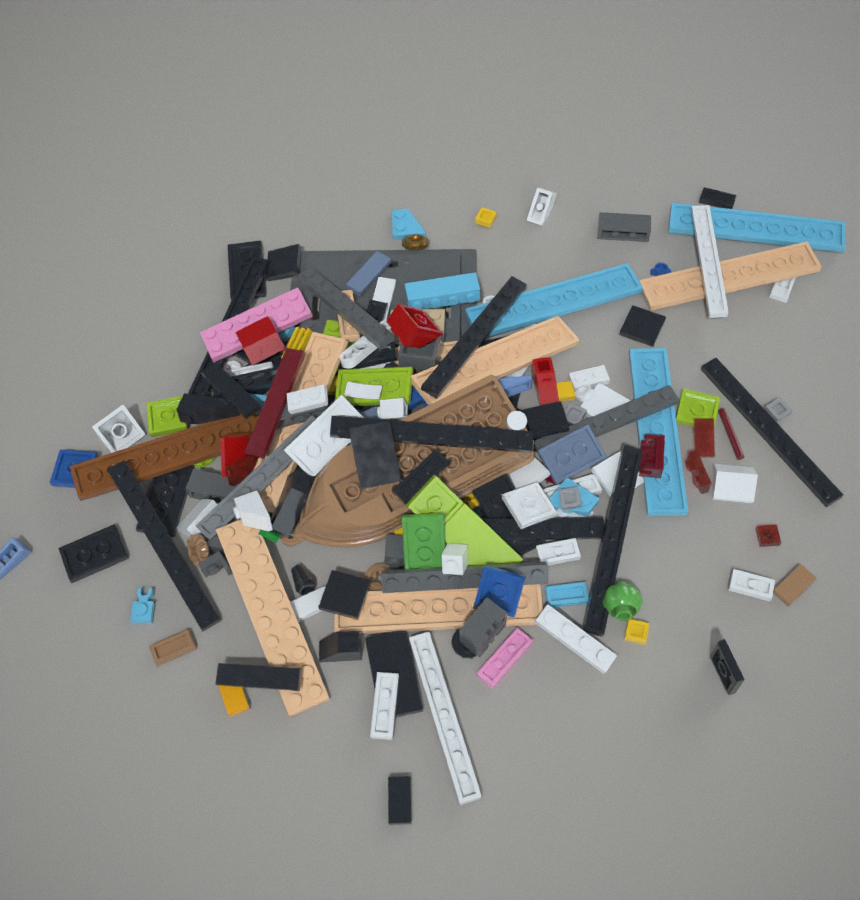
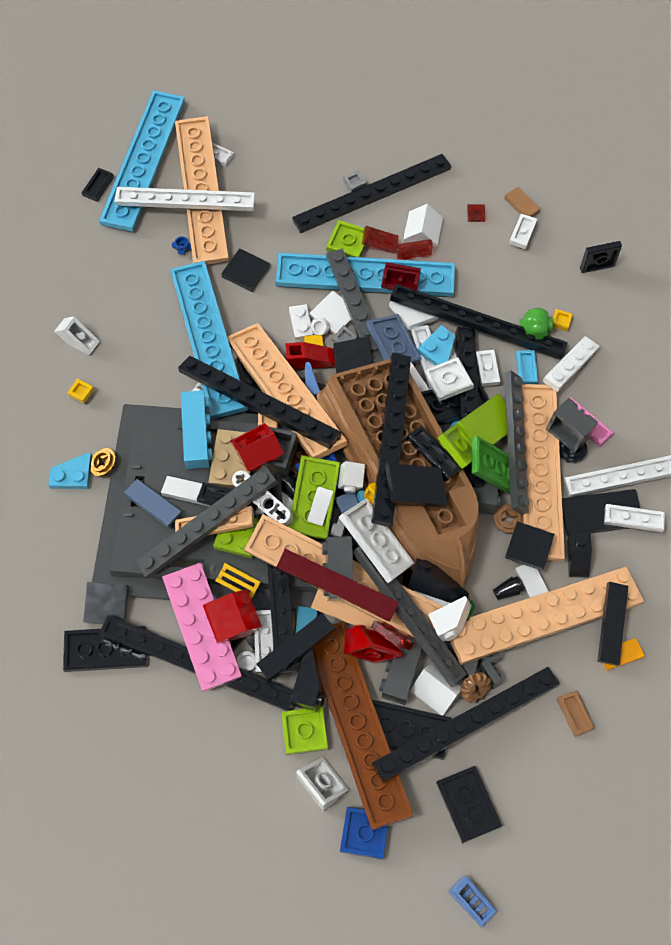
camera: 90 degrees left, 5 degrees up
(143, 609) = (535, 745): medium azure plate -> none
(307, 399) = (340, 549): white plate -> none
(455, 559) = (507, 440): white brick -> none
(501, 588) = (534, 410): blue plate -> none
(516, 421) = (381, 365): white tile -> none
(569, 498) = (443, 345): light grey tile -> none
(624, 227) = (121, 266): dark grey brick -> none
(731, 434) = (373, 221): dark red bar -> none

